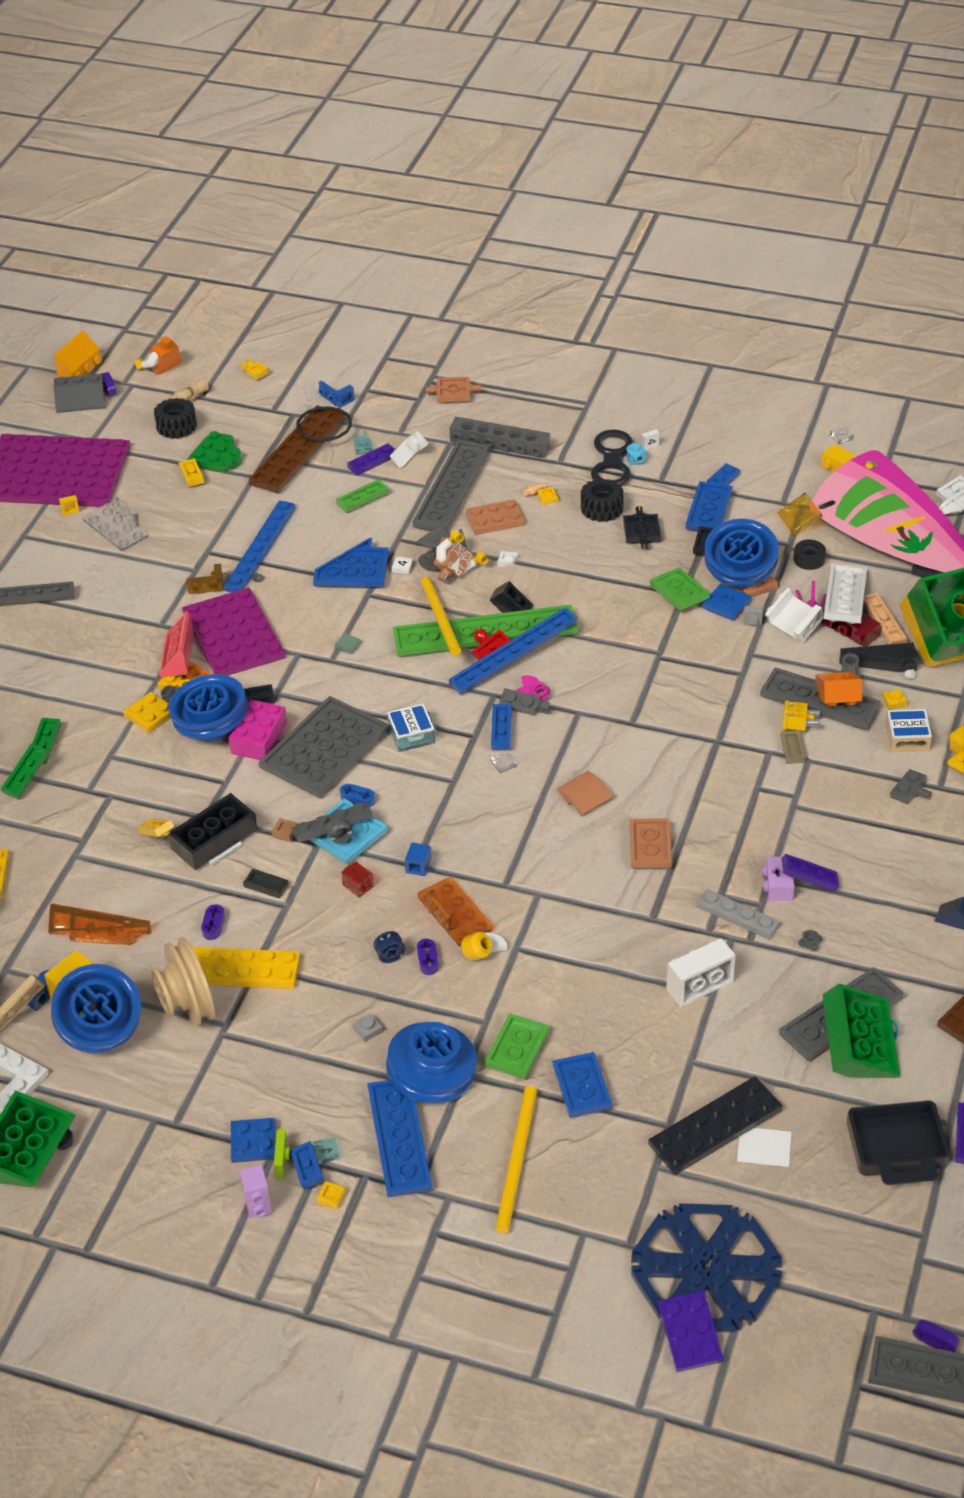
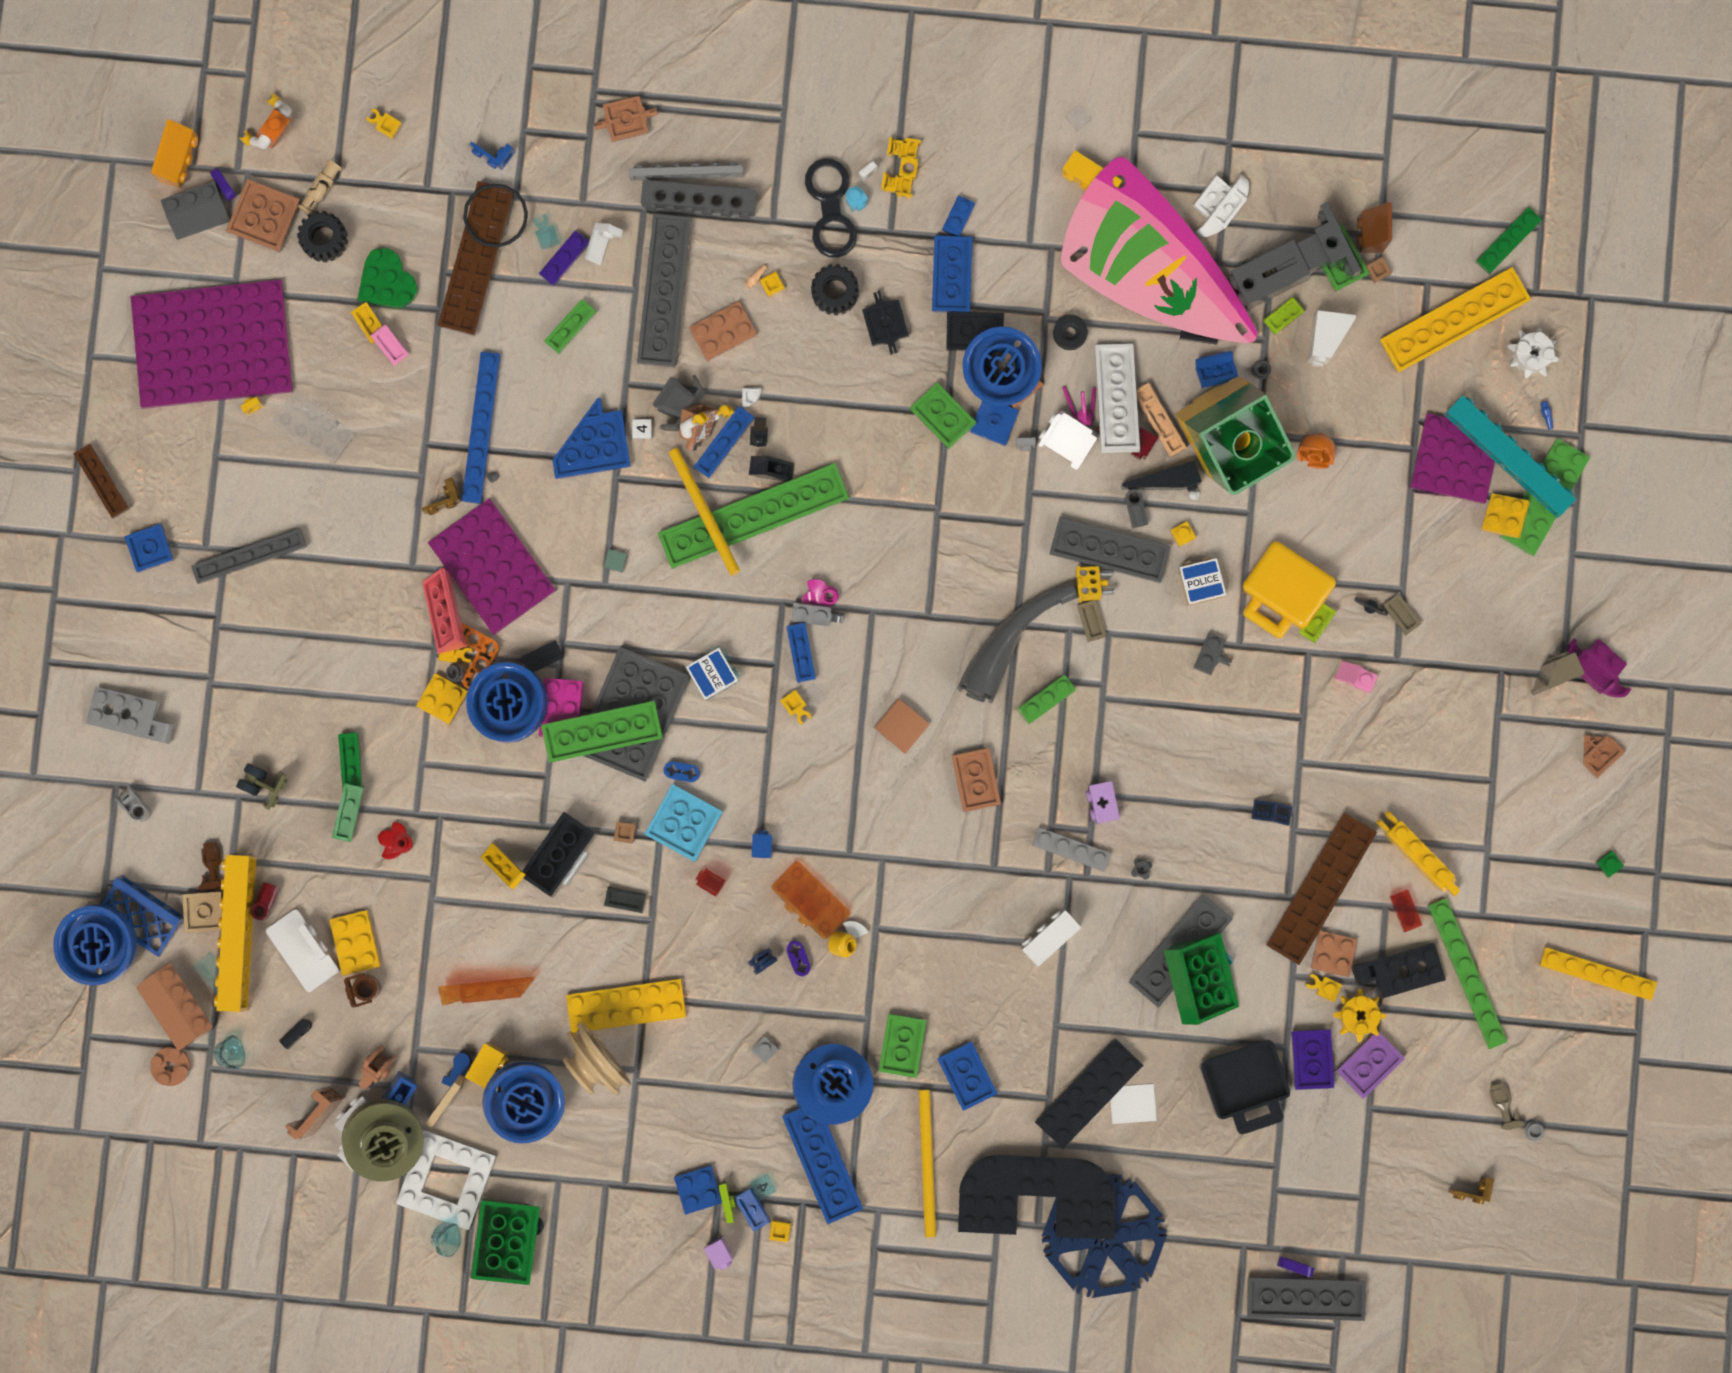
camera: 10 degrees left, 40 degrees up
(59, 804) = (392, 841): none -> red plate
(131, 404) = (263, 215): none -> nougat plate
(202, 485) = (389, 344): none -> bright pink tile
(209, 921) = (585, 958): dark purple beam -> none
(289, 740) = (601, 731): none -> bright green plate
(334, 825) = (672, 826): dark grey plate -> none
(473, 581) = (724, 442): none -> blue plate
(484, 762) = (794, 705): none -> yellow plate
(487, 644) = (765, 544): red plate -> none
(506, 575) = (759, 432): none -> black piece
(512, 651) = (790, 547): blue plate -> none
(516, 421) = (695, 171): none -> light grey plate
(680, 451) = (909, 152): none -> yellow piece
(685, 753) = (991, 660): none -> dark grey brick
(689, 1204) = (1082, 1191): none -> black plate
(690, 1331) = (1101, 1303): dark purple plate -> none
(735, 791) = (1046, 699): none -> bright green brick
(799, 514) = (1051, 272): clear yellow tile -> none
(810, 872) = (1132, 797): dark purple plate -> none
(839, 688) = (1128, 544): orange slope -> none

